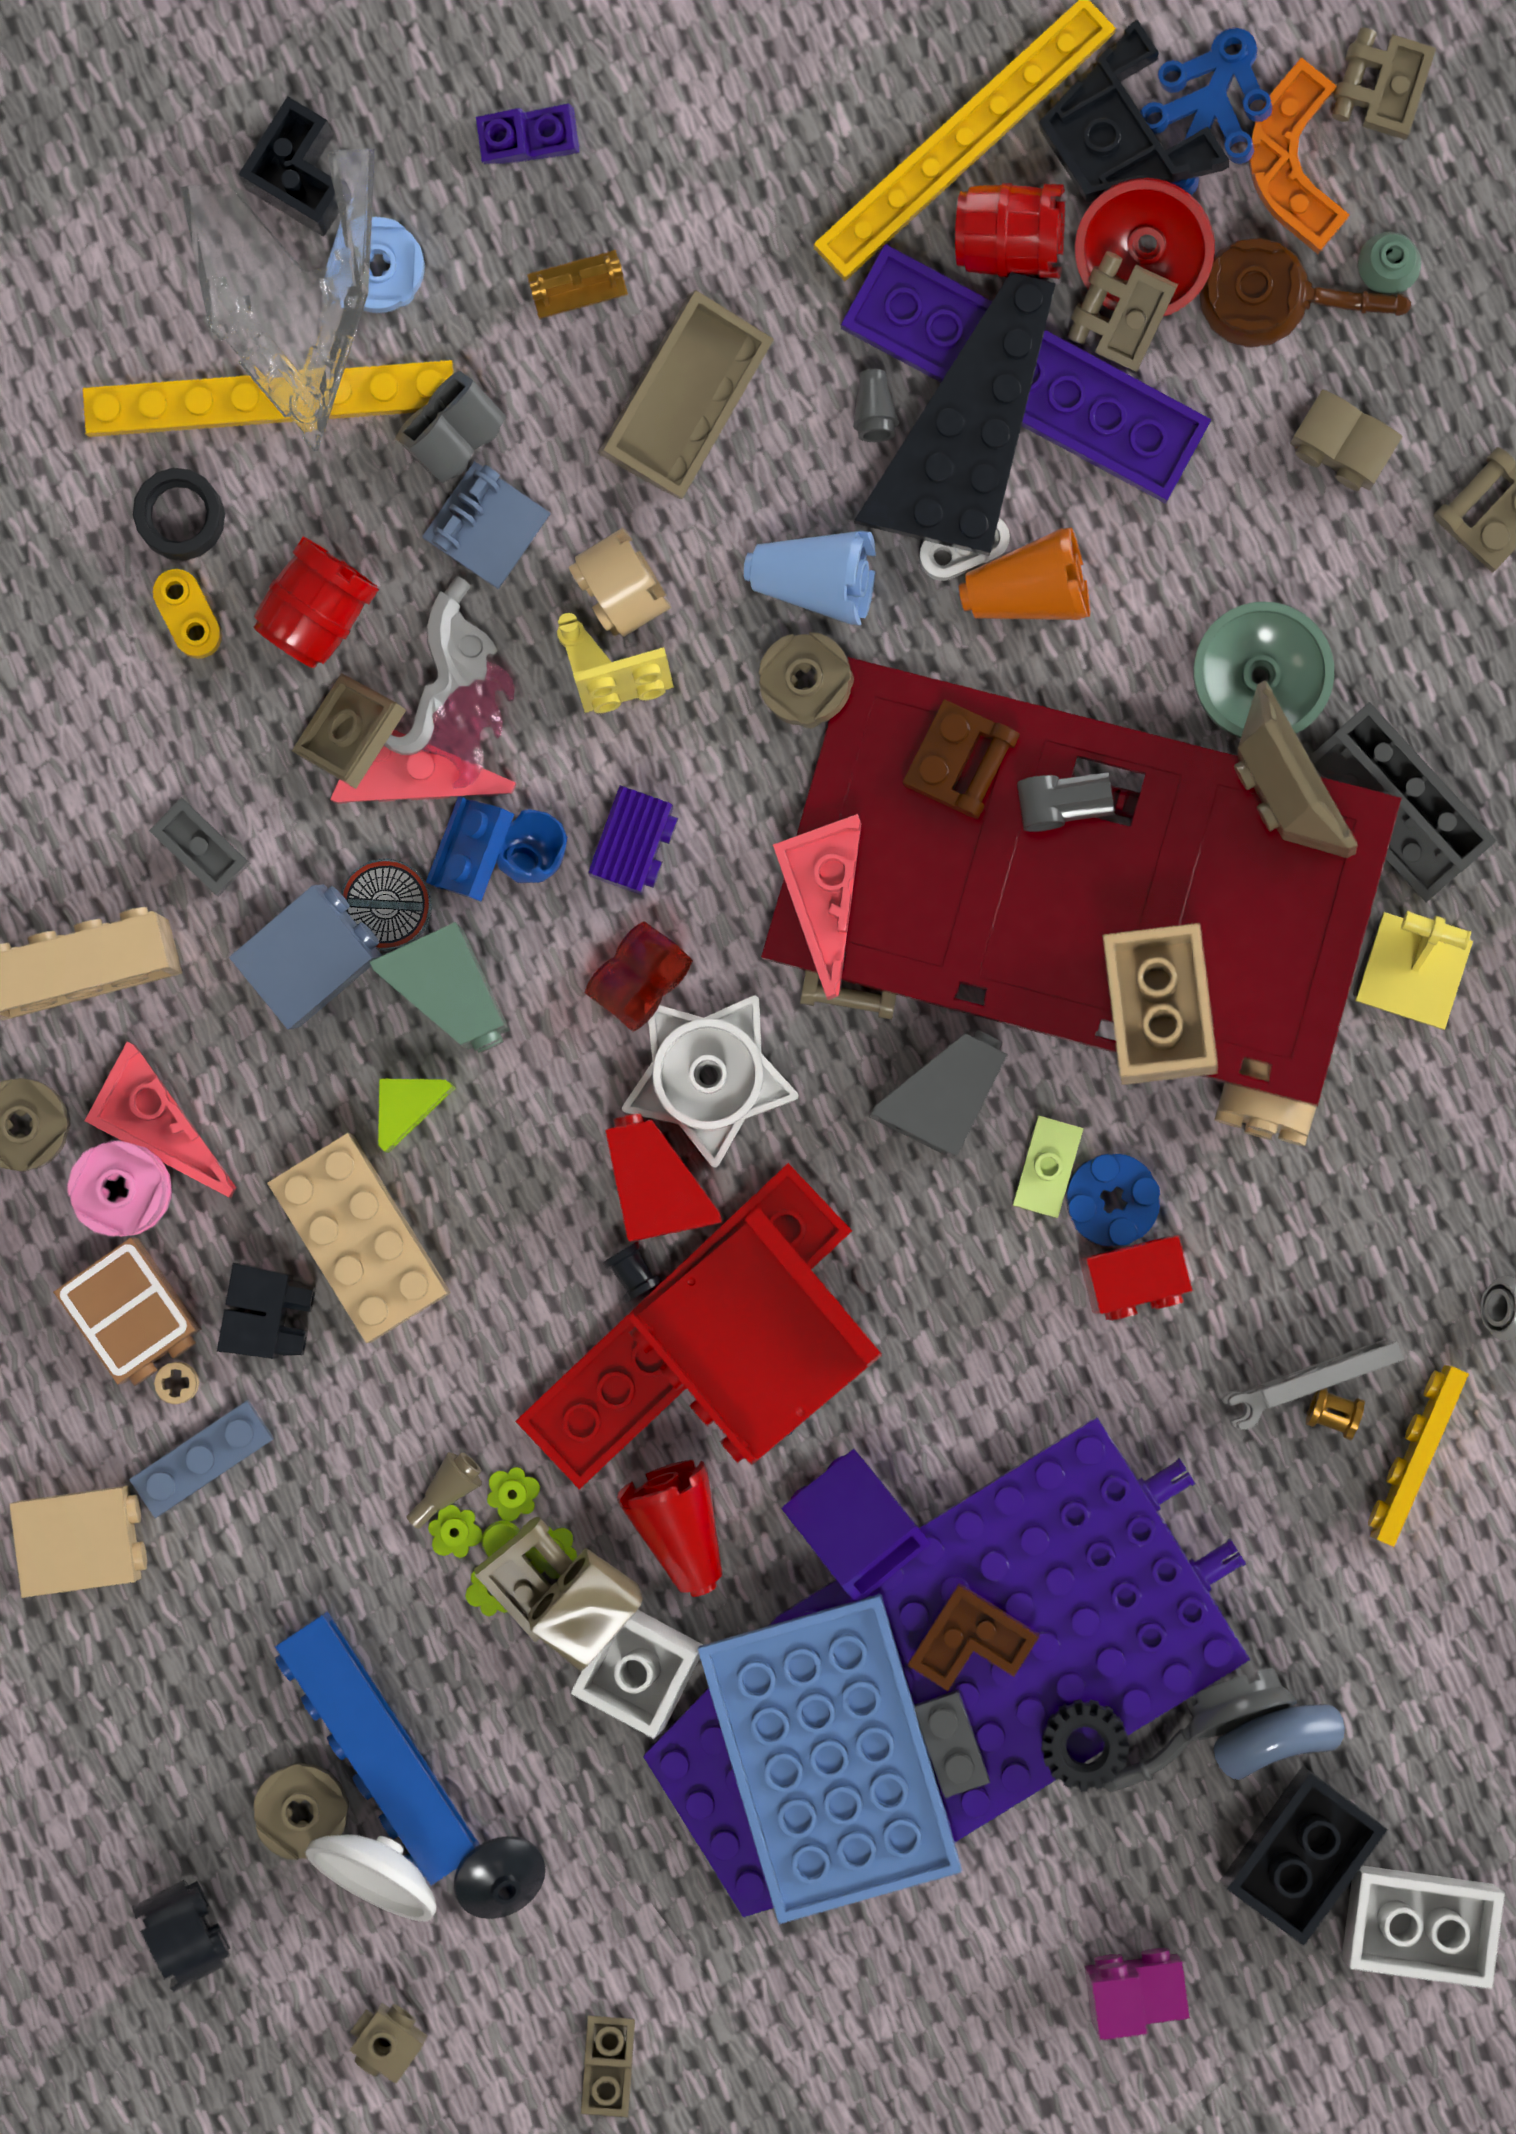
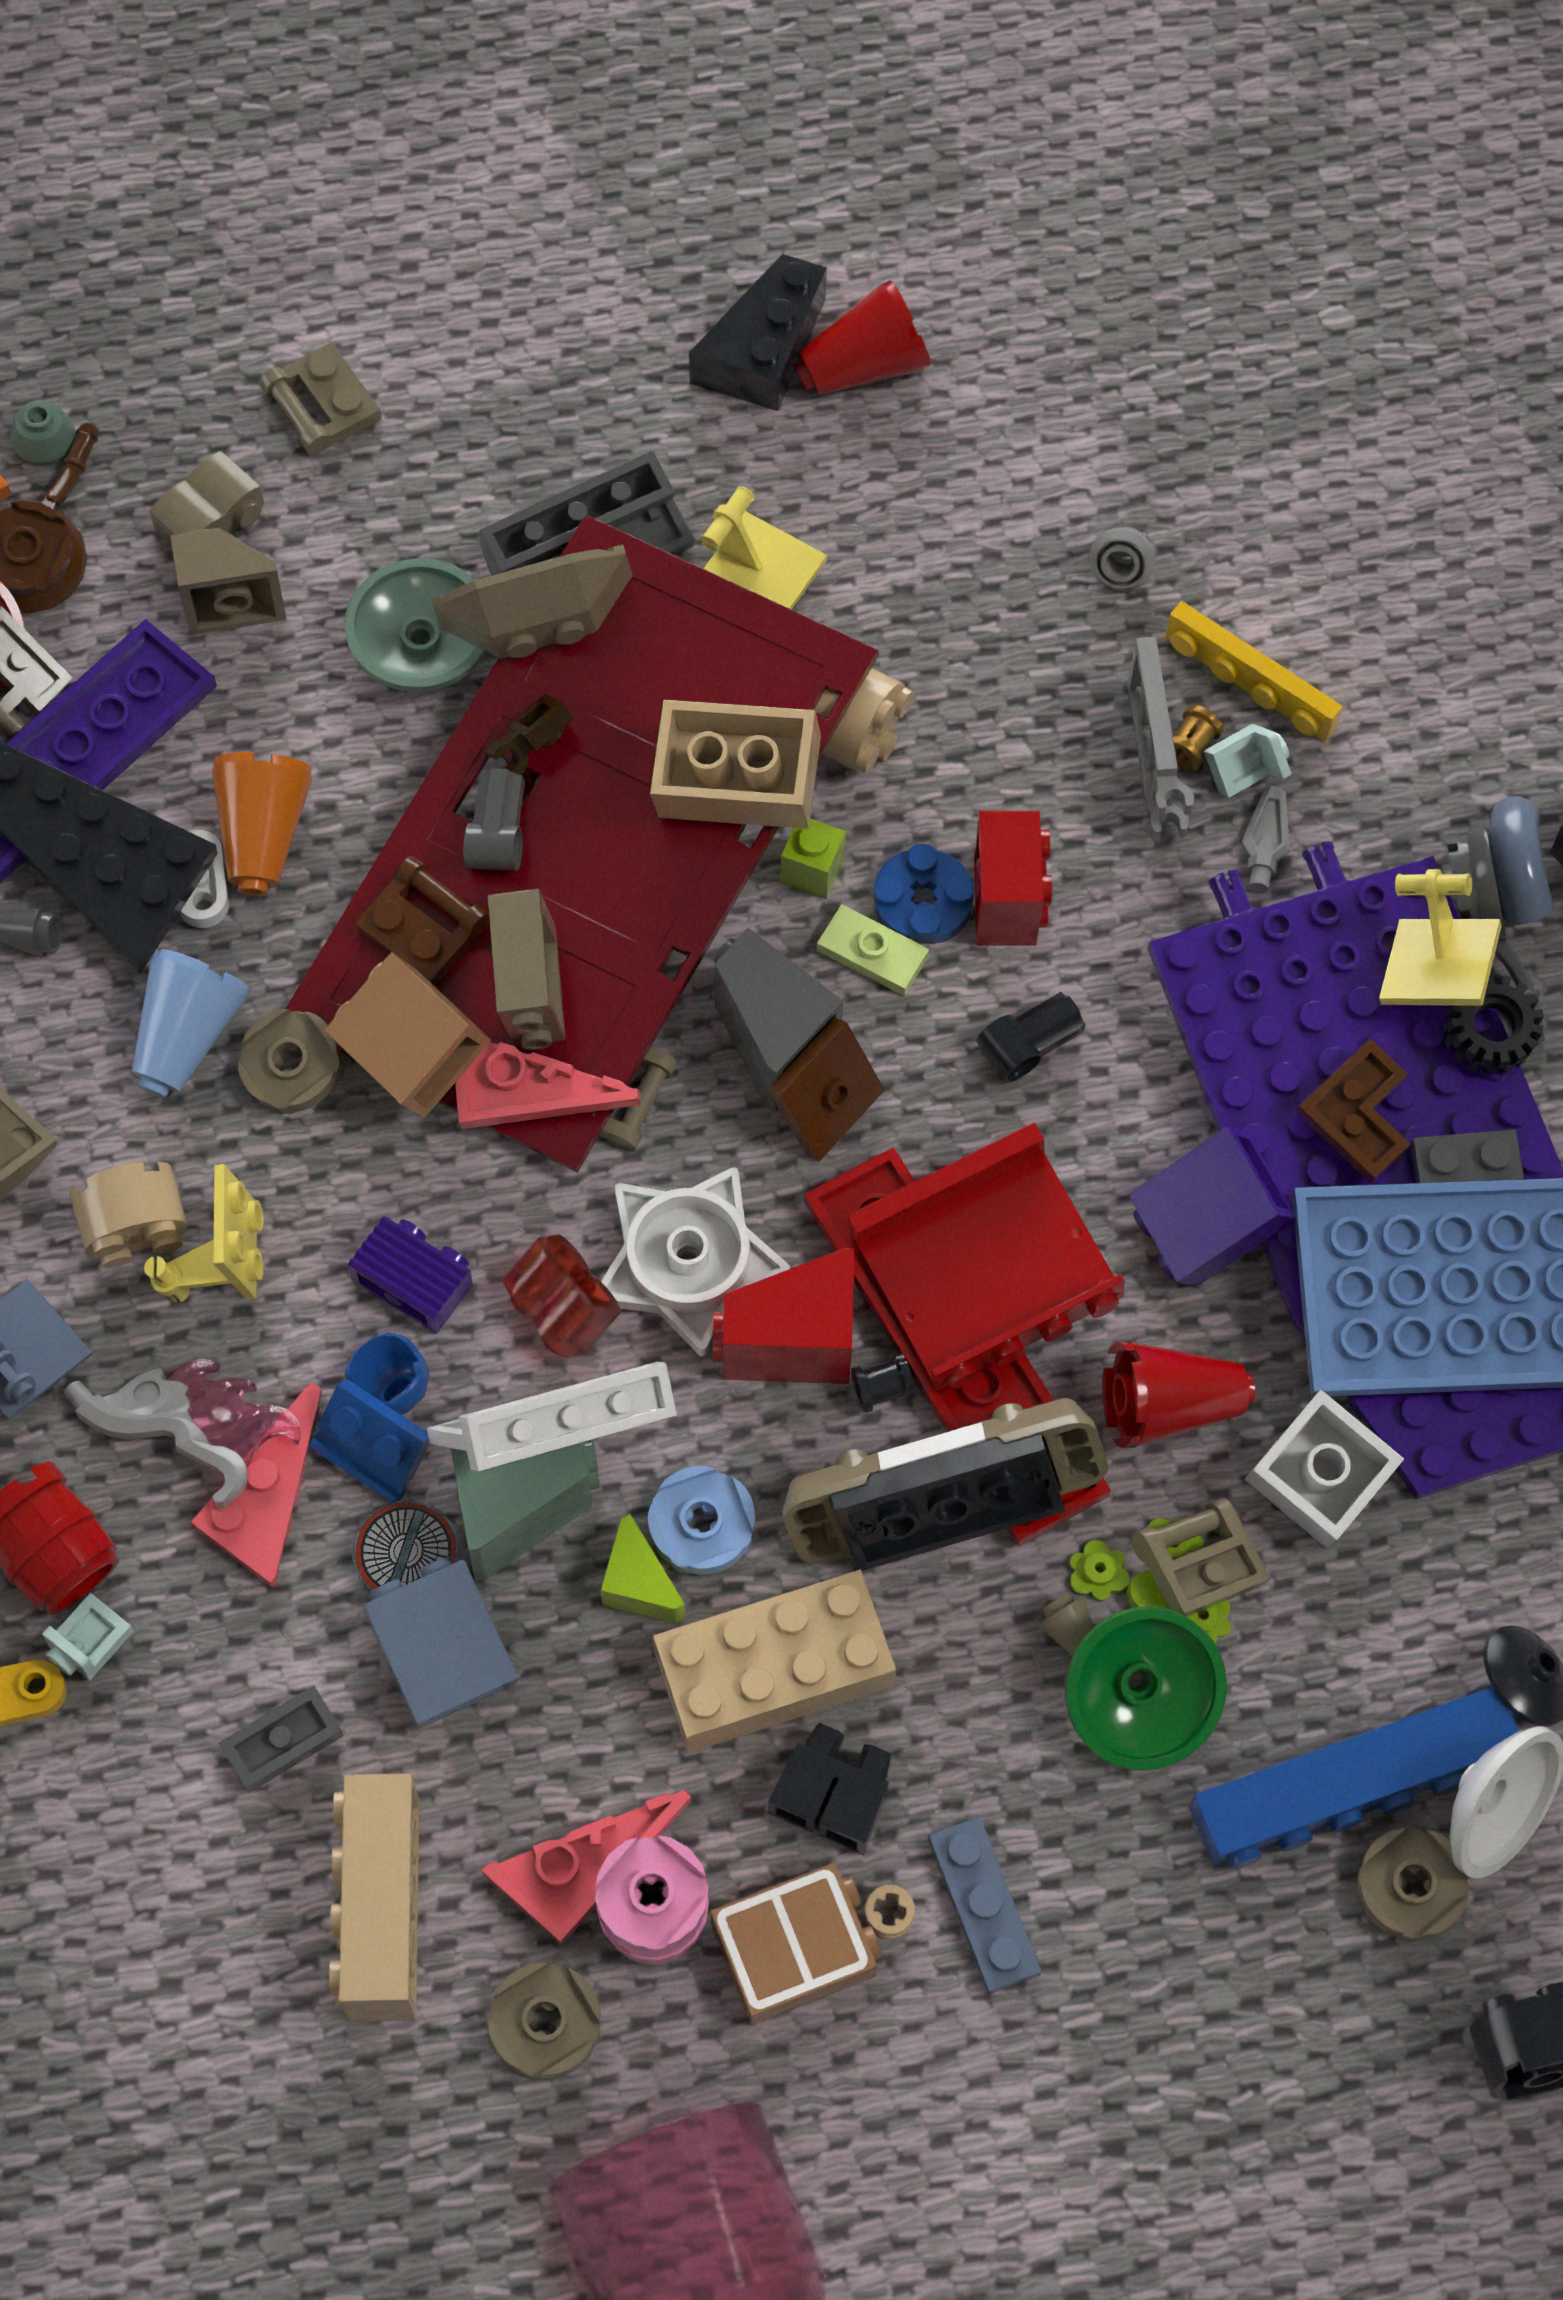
camera: 80 degrees left, 20 degrees down
(77, 1541) = (1049, 2065): tan brick -> none
(244, 661) = (87, 1638): none -> light aqua bracket
(348, 730) = (200, 1537): dark tan plate -> none
(391, 1566) = (1172, 1706): none -> green dish
(466, 1172) = (689, 1548): none -> light blue plate
(489, 998) = (560, 1417): none -> white fence
(535, 1348) = (945, 1486): none -> piece
(585, 1609) = (1247, 1504): dark tan piece -> none
(839, 777) = (407, 1035): none -> medium nougat brick
(886, 1159) = (826, 1089): none -> reddish brown plate
(918, 867) = (526, 969): none -> dark tan window
(986, 1321) = (1020, 1042): none -> black piece
(1118, 1099) = (813, 858): none -> lime brick
(1134, 1684) = (1439, 956): none -> light yellow plate
(1162, 809) = (534, 728): none -> dark brown plate
(1252, 1501) = (1266, 838): none -> light grey piece
(1258, 476) = (224, 582): none -> dark tan slope
(1324, 1467) = (1247, 759): none -> light aqua bracket

